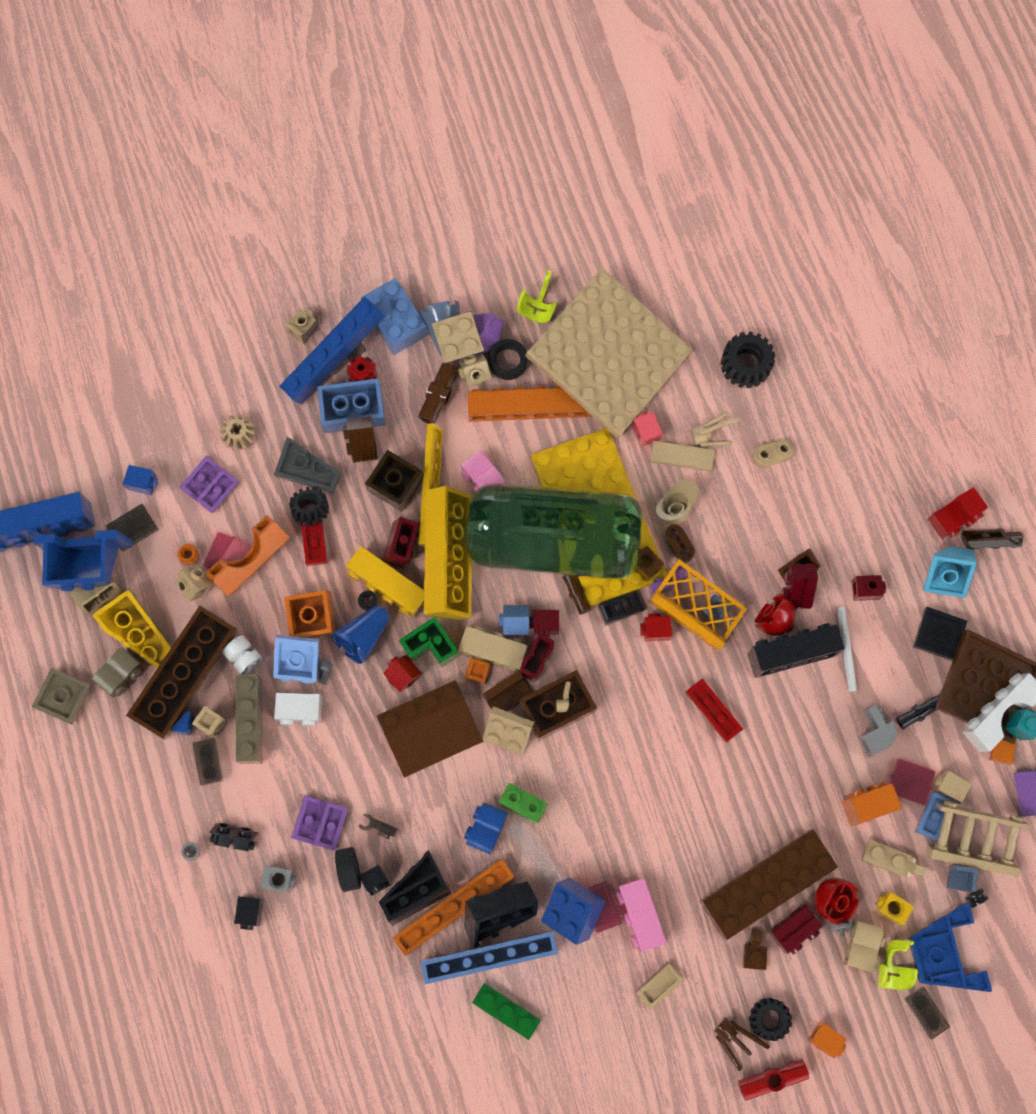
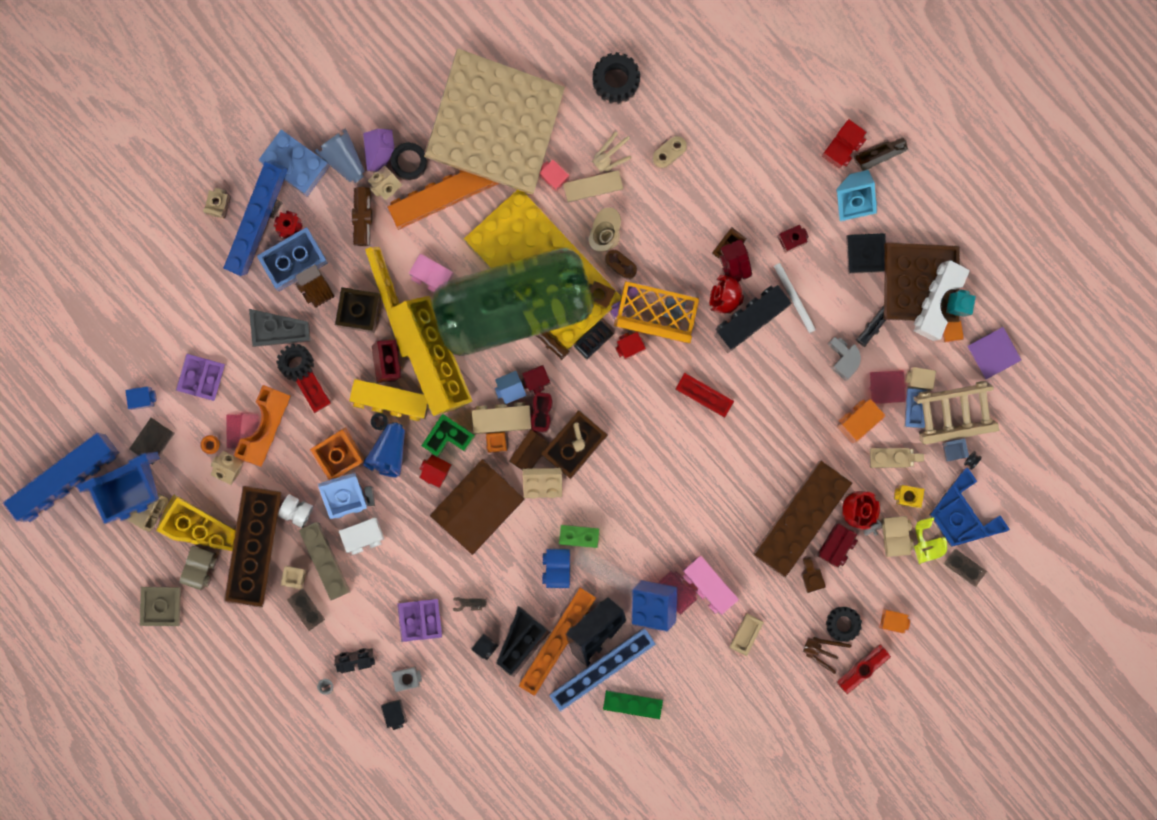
camera: 25 degrees left, 10 degrees up
(184, 724) = (273, 587): blue slope -> none
(244, 427) = (202, 330): tan gear -> none
(347, 869) = (459, 648): black tyre -> none
(457, 336) = (358, 162): tan plate -> none
(527, 311) = (421, 109): neon yellow helmet -> none

